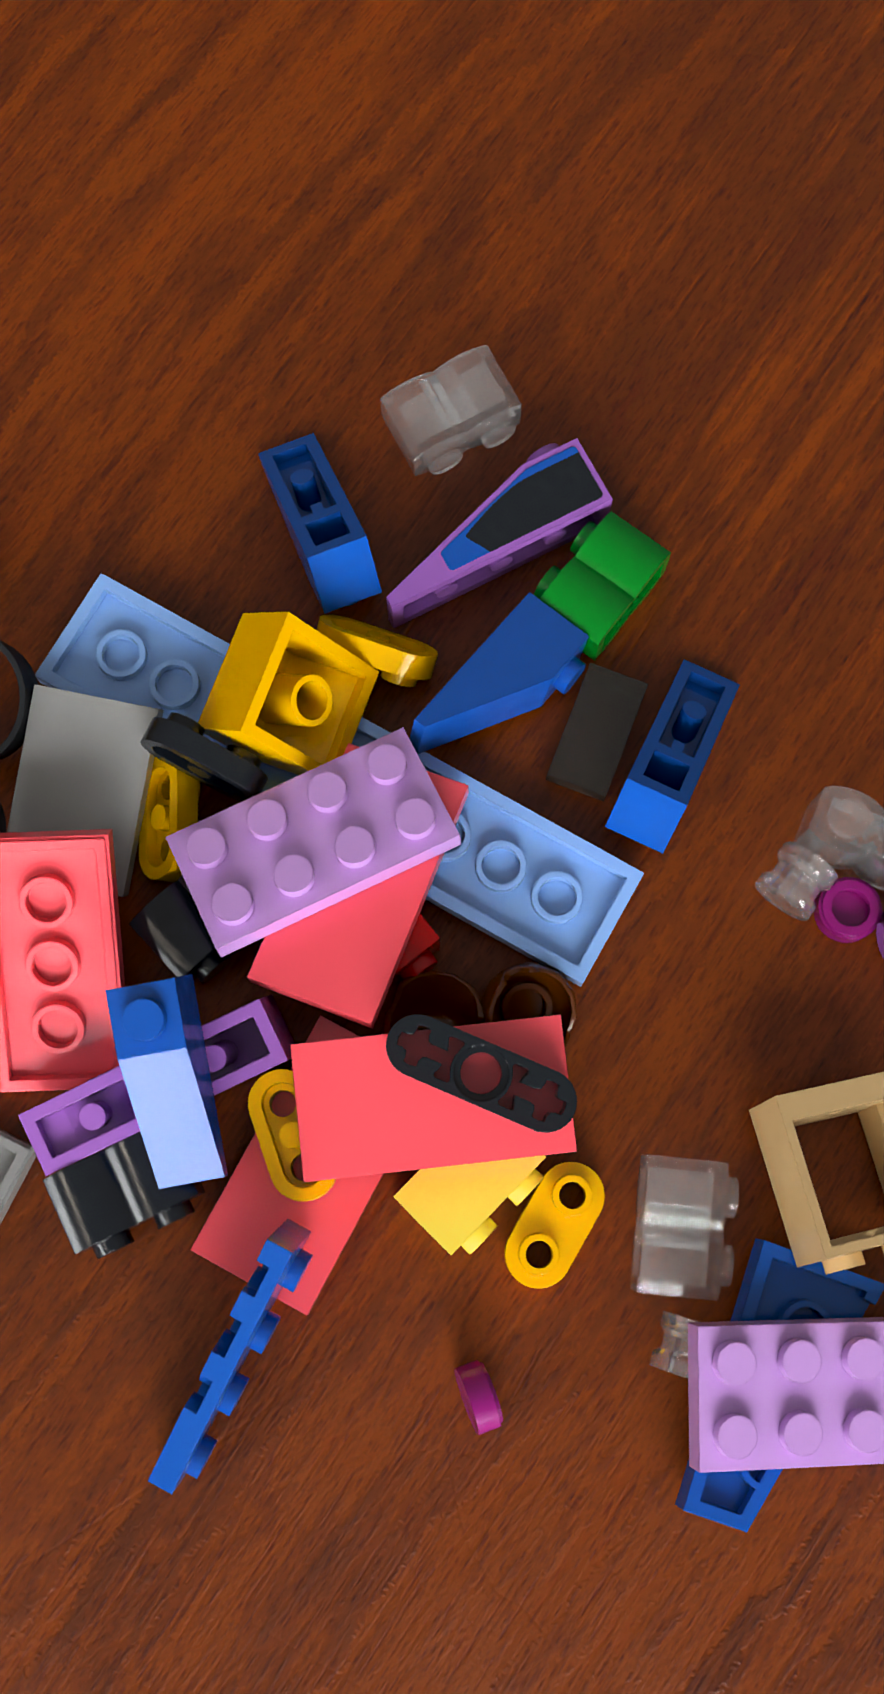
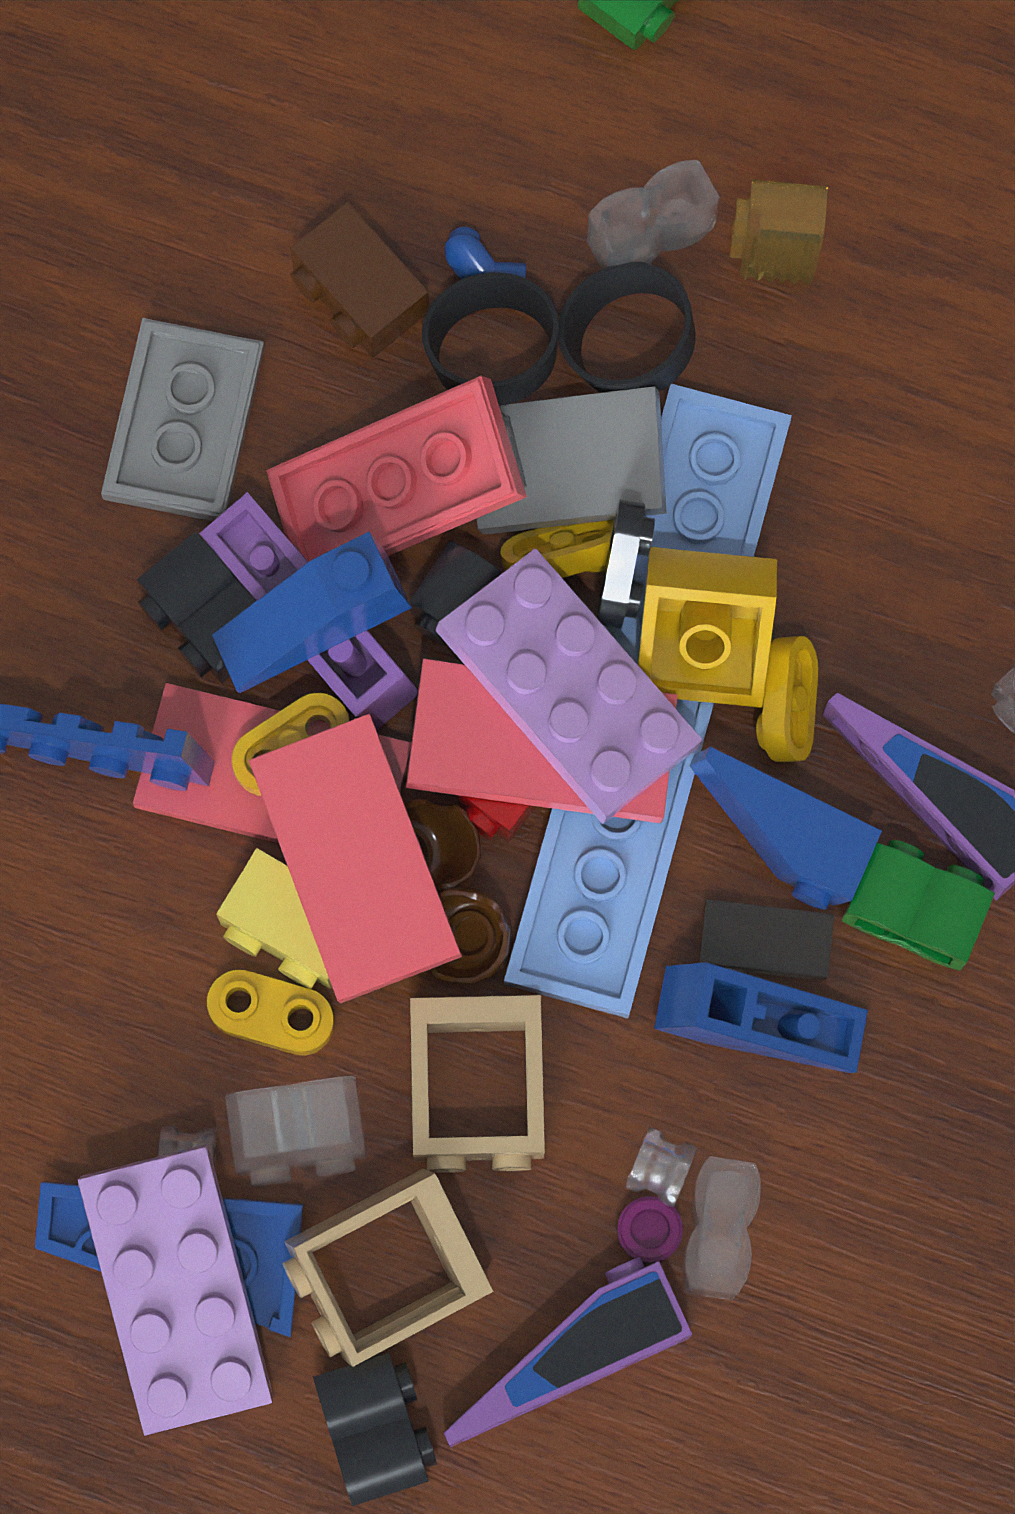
camera: 75 degrees right, 0 degrees up
(321, 523) = (906, 610): blue slope -> none
(479, 1396) = (97, 976): magenta tile -> none
(521, 1109) = (377, 840): black beam -> none
(603, 1044) = (477, 1015): none -> tan window

